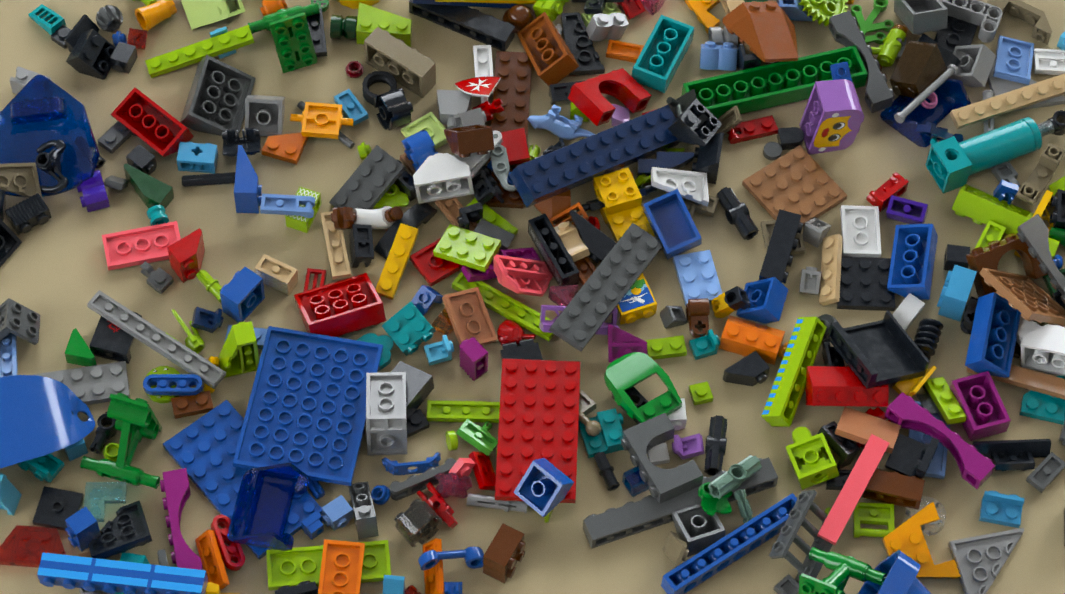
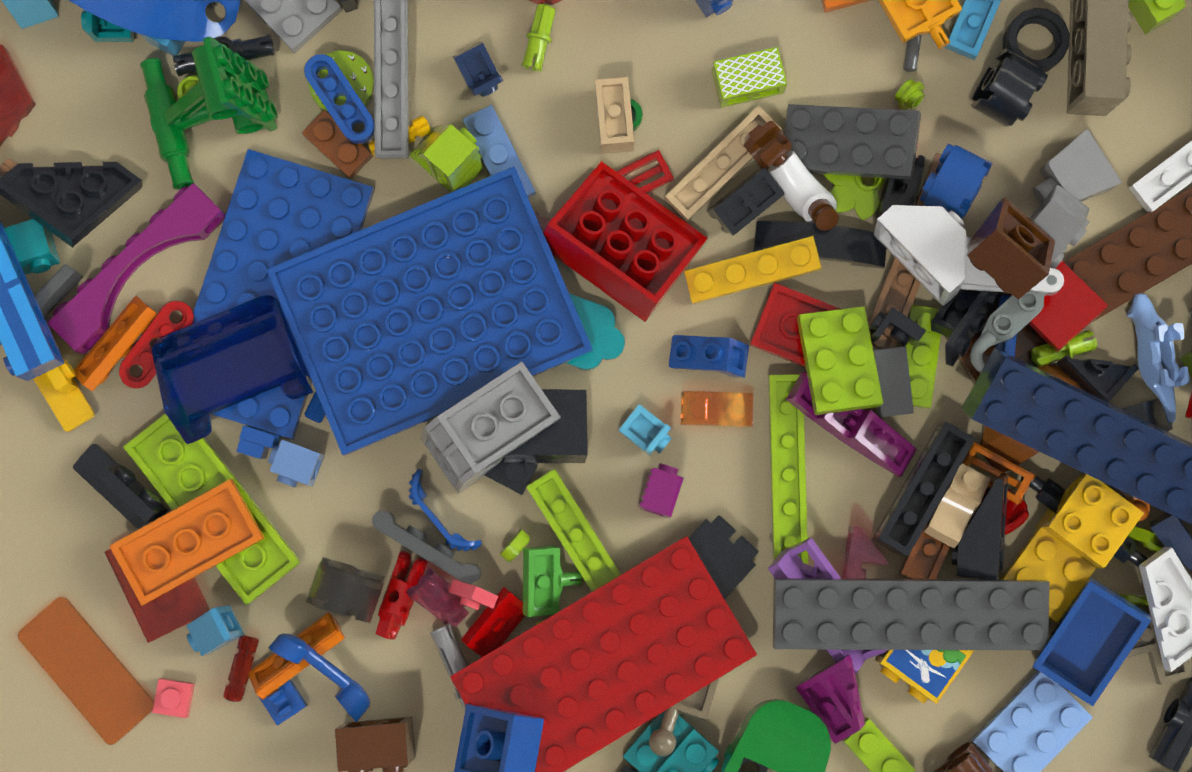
camera: 60 degrees right, 25 degrees up
(56, 506) = (64, 80): black plate -> none
(82, 528) = (38, 138): blue brick -> none
(102, 493) = (113, 120): clear light blue plate -> none
(194, 340) = (429, 78): lime plant -> none
(242, 294) = (542, 92): blue brick -> none
(287, 205) = (729, 52): medium blue plate -> none
(363, 510) = (326, 494): dark grey slope -> none
(380, 494) = (360, 498): blue plate -> none
(409, 329) = (651, 365): teal plate -> none
(431, 125) = (1014, 160): yellowish green tile -> none
(469, 316) = (725, 441): nougat plate -> none
(478, 86) = (1137, 187): red shield -> none
(490, 109) = (1107, 224): red plate -> none
(511, 331) = (749, 514): red piece -> none
(522, 275) = (847, 477): coral wedge -> none
(673, 316) = (939, 732): dark grey slope -> none

